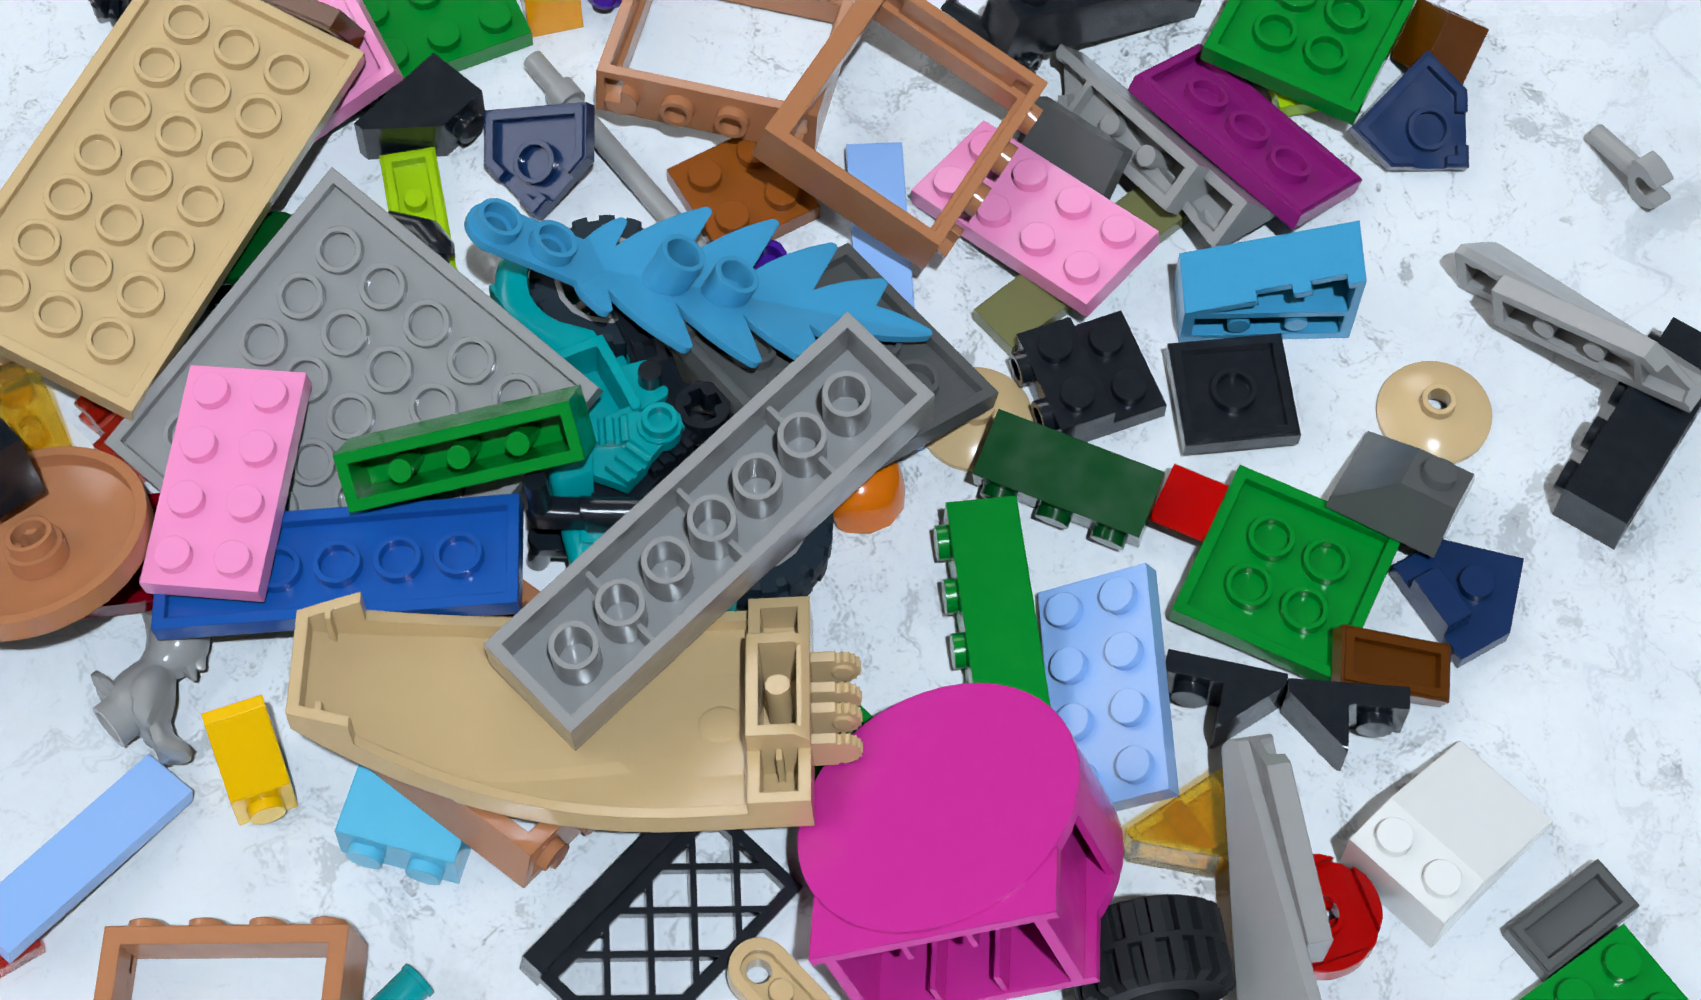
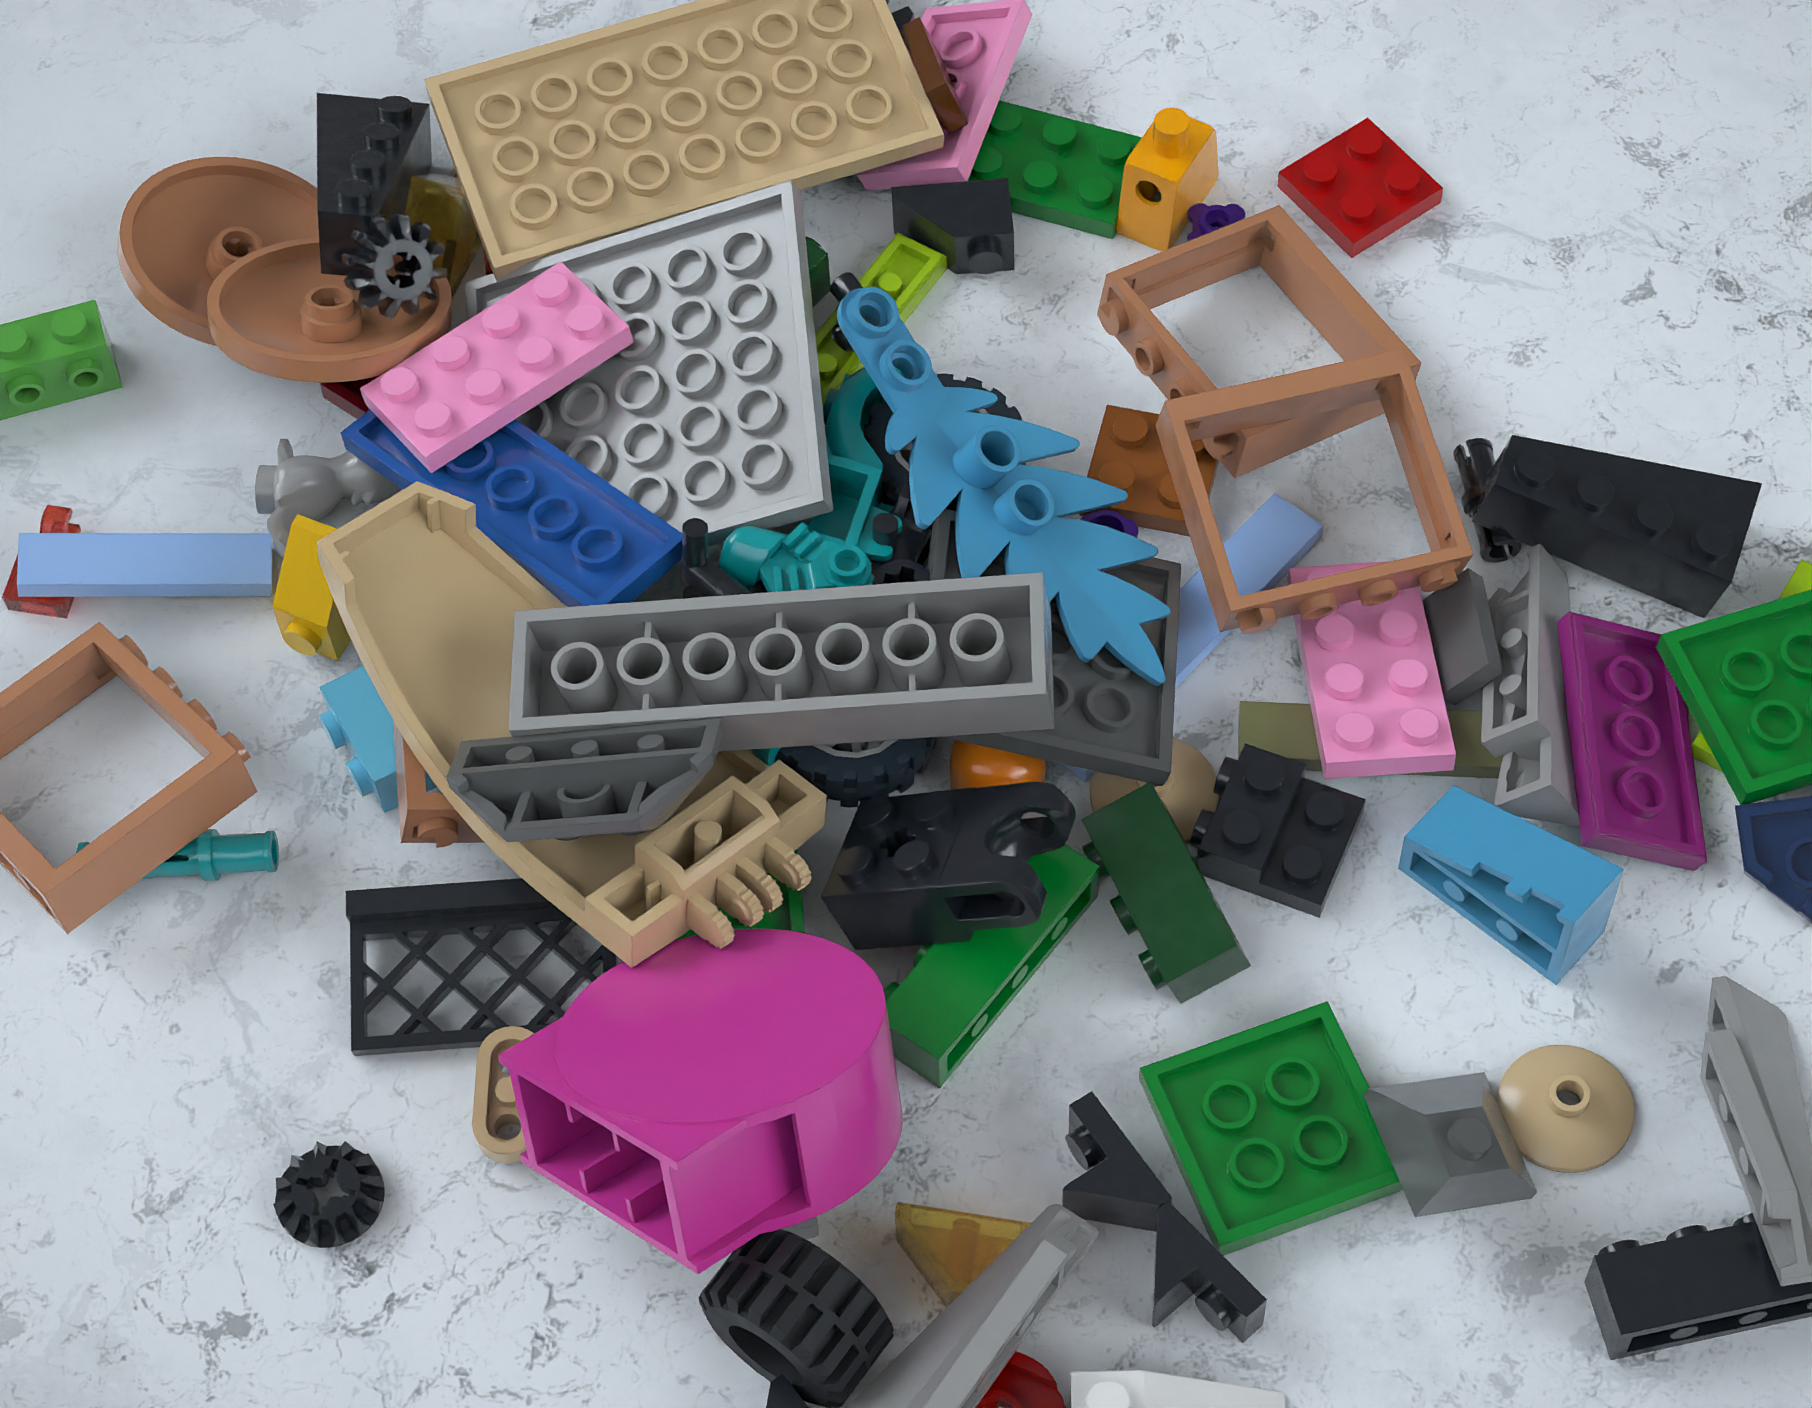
camera: 50 degrees right, 5 degrees down
(67, 467) = (376, 257): none -> black gear
(465, 449) = (674, 467): green brick -> none
(539, 151) = (1017, 316): dark blue plate -> none
(565, 90) = (1085, 298): light grey bar -> none
(666, 719) = (584, 778): none -> dark grey wedge
(929, 577) = (945, 863): none -> black brick
(1112, 681) = (1012, 1086): light blue plate -> none
(1188, 502) = (1249, 995): red slope -> none
(1232, 394) = (1390, 943): black plate -> none
(1393, 660) = (1298, 1289): reddish brown tile -> none
(1462, 596) = (1420, 1278): dark blue plate -> none

